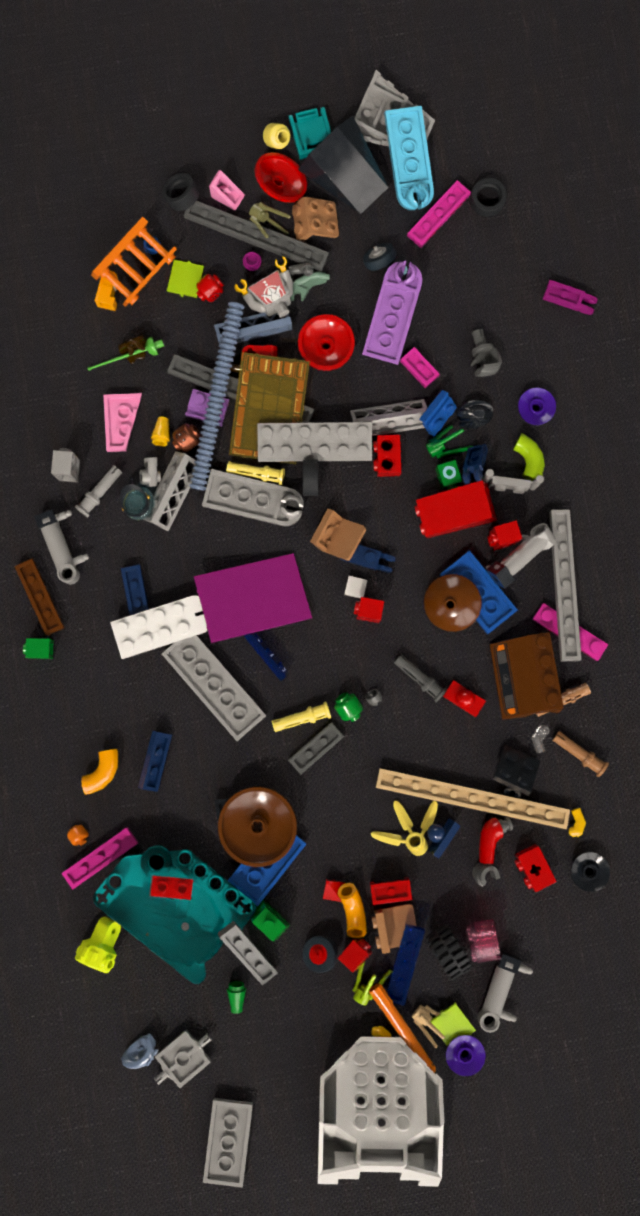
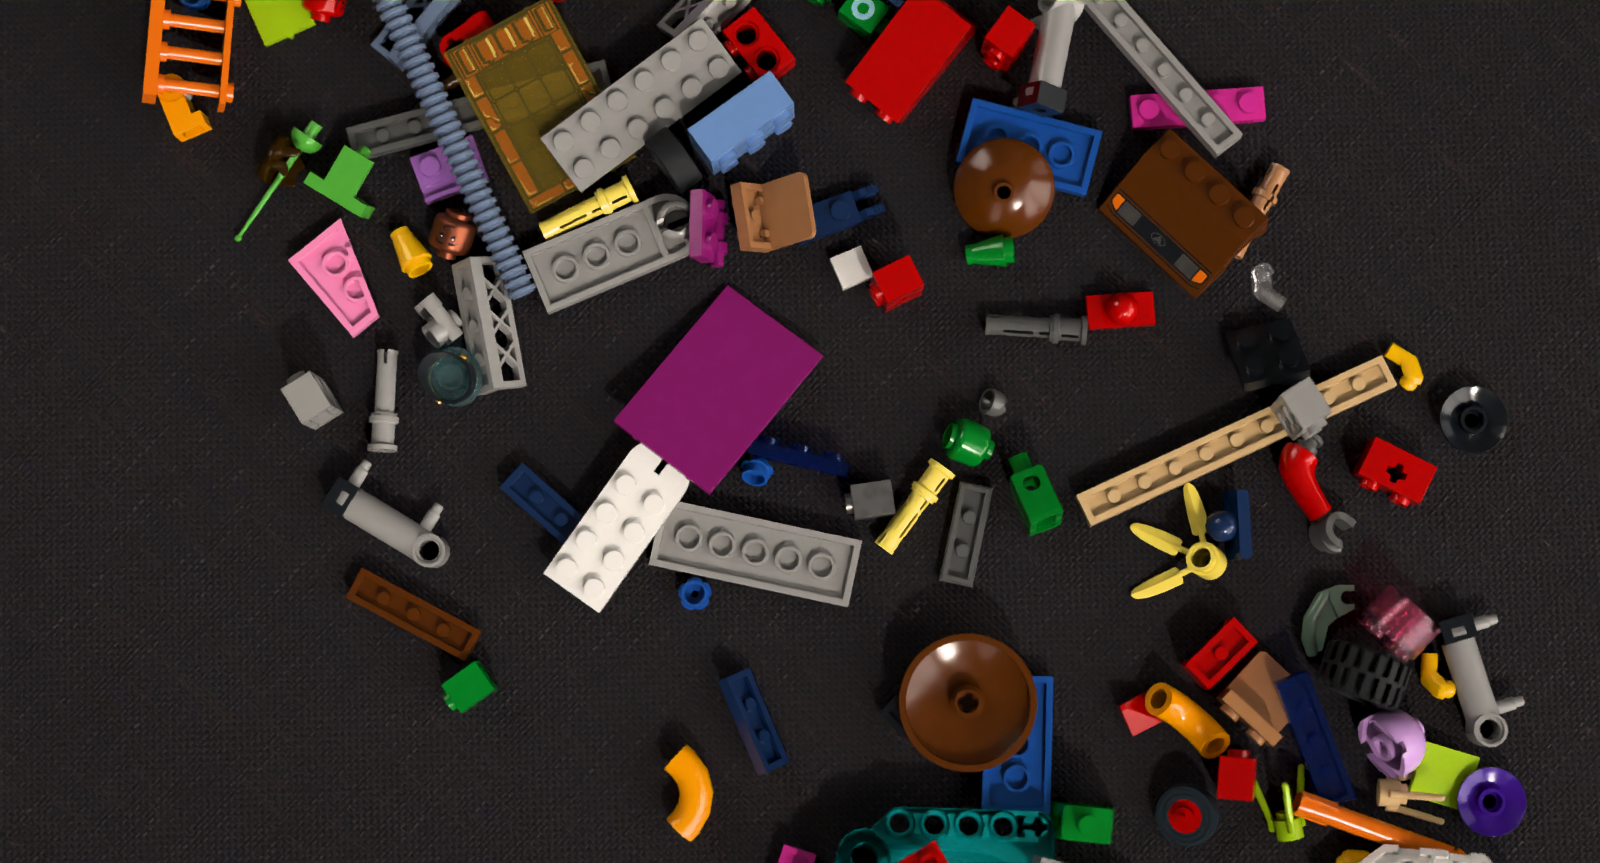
camera: 30 degrees left, 0 degrees up
(155, 377) = (345, 180): none -> bright green piece
(167, 683) = (685, 593): none -> blue plate
(242, 647) = (756, 471): none -> blue plate
(284, 700) = (870, 500): none -> flat silver brick
(302, 520) = (707, 228): none -> magenta plate
(354, 484) = (742, 124): none -> medium blue brick
(359, 761) = (1038, 507): none -> green torso
(425, 628) = (992, 251): none -> green cone
(441, 994) = (1395, 741): none -> lavender cylinder
(453, 907) = (1321, 613): none -> sand green piece
(480, 977) = (1432, 679): none -> yellow arm
(512, 808) = (1301, 410): none -> light grey brick
(587, 758) = (1353, 266): medium nougat pin -> none

